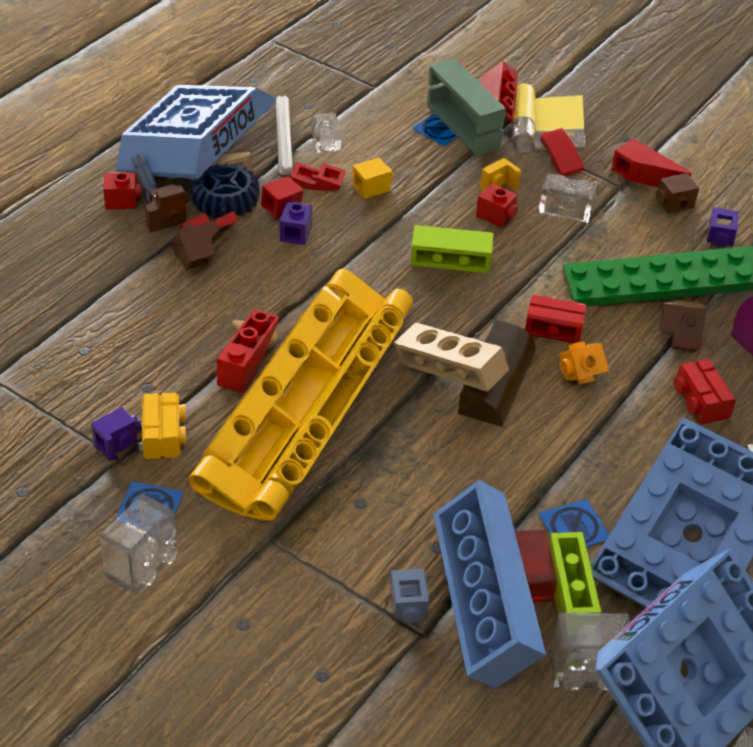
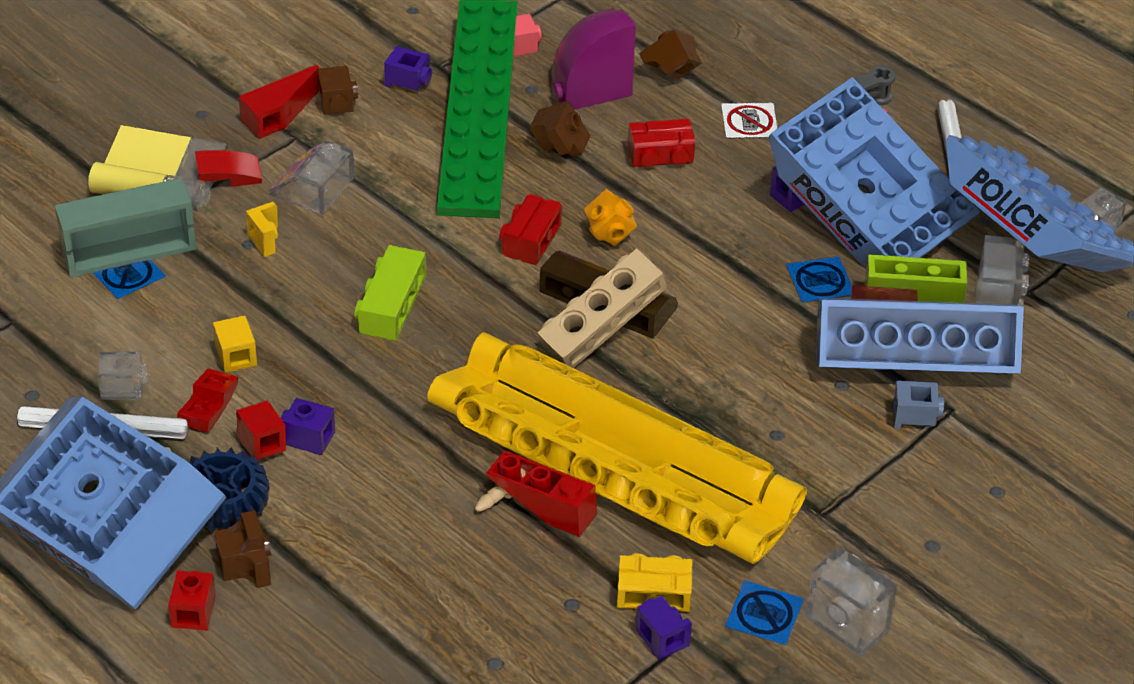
camera: 80 degrees left, 0 degrees up
(144, 174) = (162, 561): sand blue axle -> none
(195, 245) = (337, 524): reddish brown brick -> none
(222, 222) = (290, 510): red slope -> none
(497, 205) = (319, 240): red brick -> none
(502, 84) = (80, 184): red slope -> none

